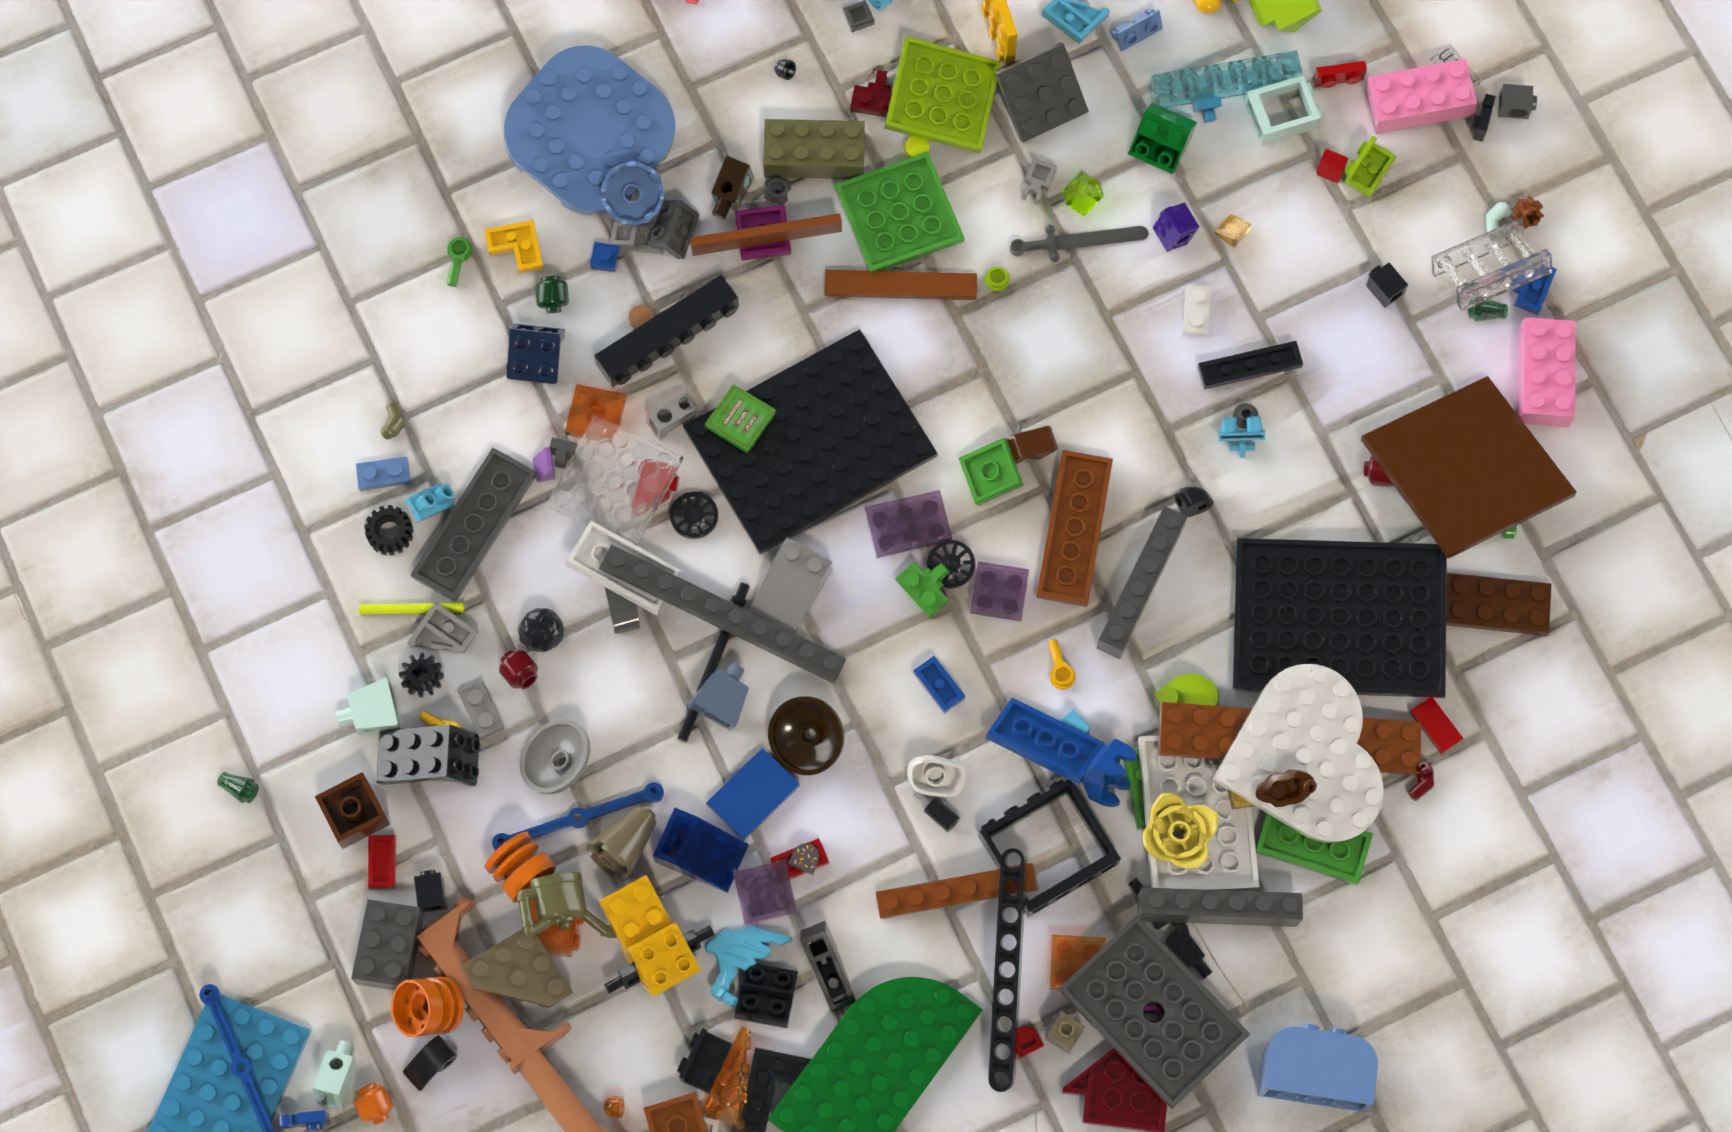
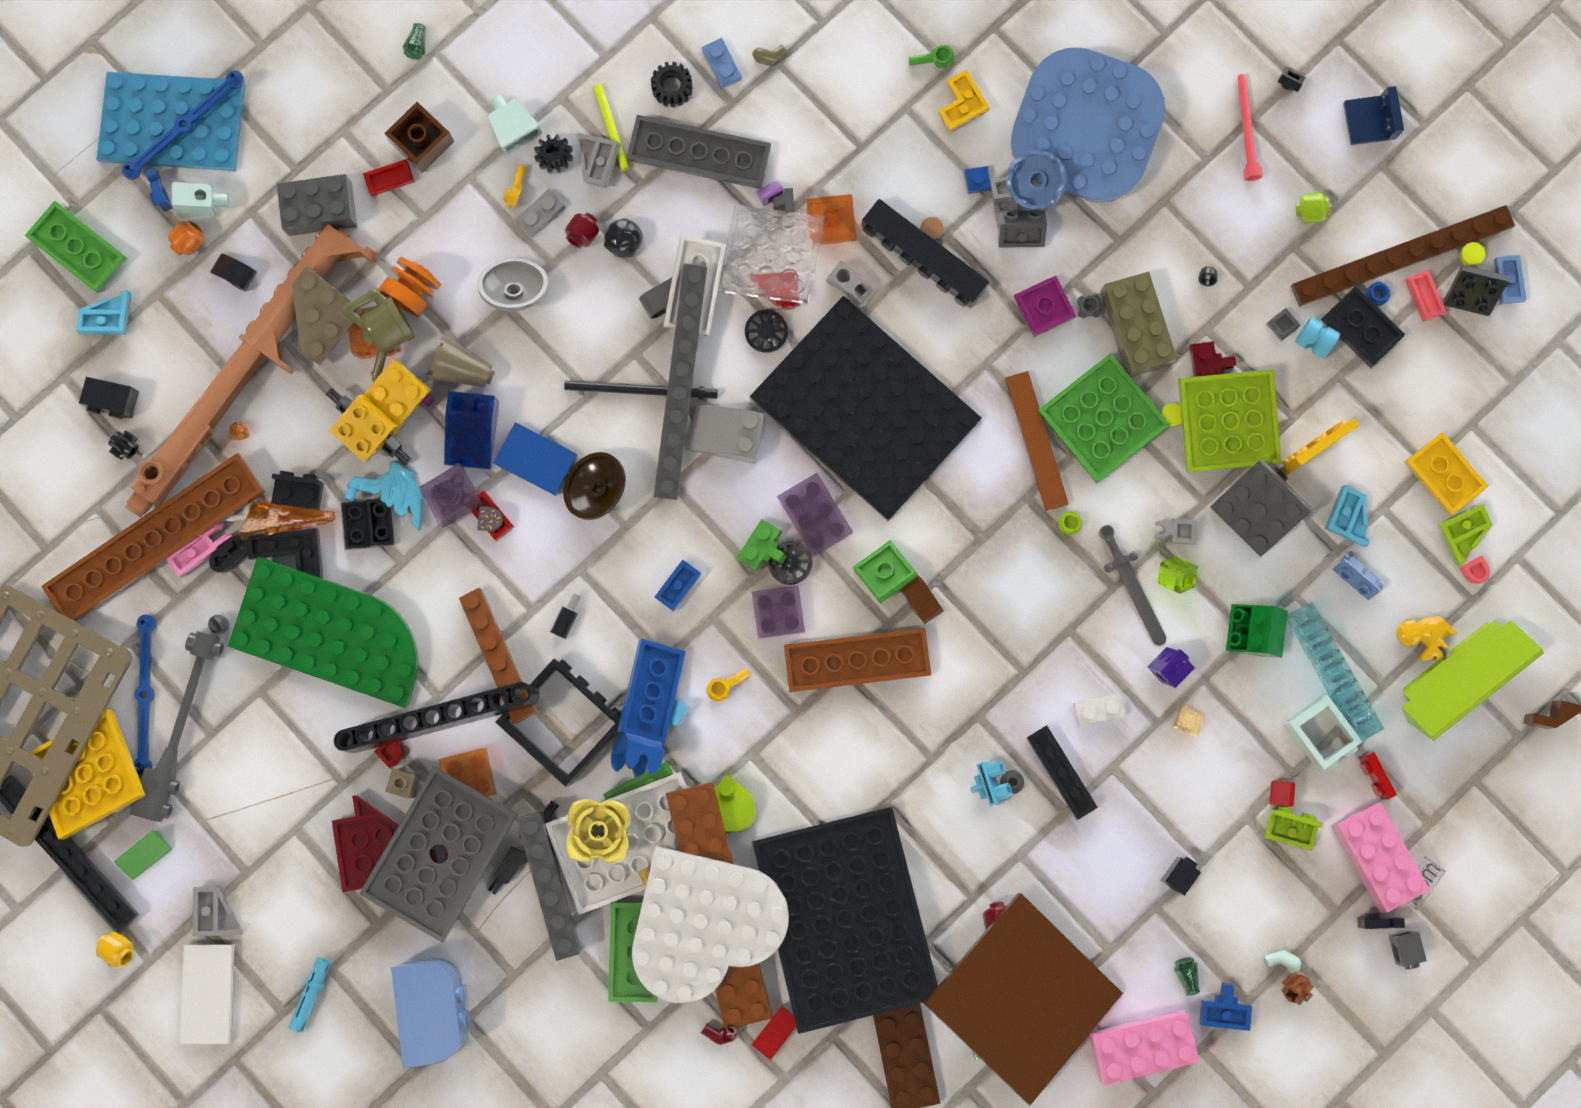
camera: 75 degrees right, 10 degrees up
(427, 1006) = (269, 251): orange wheel -> none
(428, 755) = (484, 184): bracket -> none
(430, 501) = (704, 107): medium azure hips -> none
(430, 891) = (372, 223): black brick -> none
(534, 353) = (869, 149): dark blue bracket -> none
(552, 294) = (926, 146): dark green head -> none
(653, 793) = (511, 375): blue piece -> none
(721, 697) = (608, 404): sand blue torso -> none
(732, 178) = (1083, 267): dark brown torso -> none
(740, 418) = (862, 340): bright green tile -> none
(766, 234) = (1039, 307): dark orange tile -> none
(827, 965) = (407, 563): black slope -> none
(936, 776) = (593, 607): white piece -> none
(1142, 582) = (824, 733): dark grey brick -> none
(1193, 500) = (916, 757): black piece -> none
(1207, 107) = (1302, 662): dark azure tile -> none
(1286, 788) = (661, 914): reddish brown arm -> none
(1499, 281) = (1214, 980): clear fence -> none

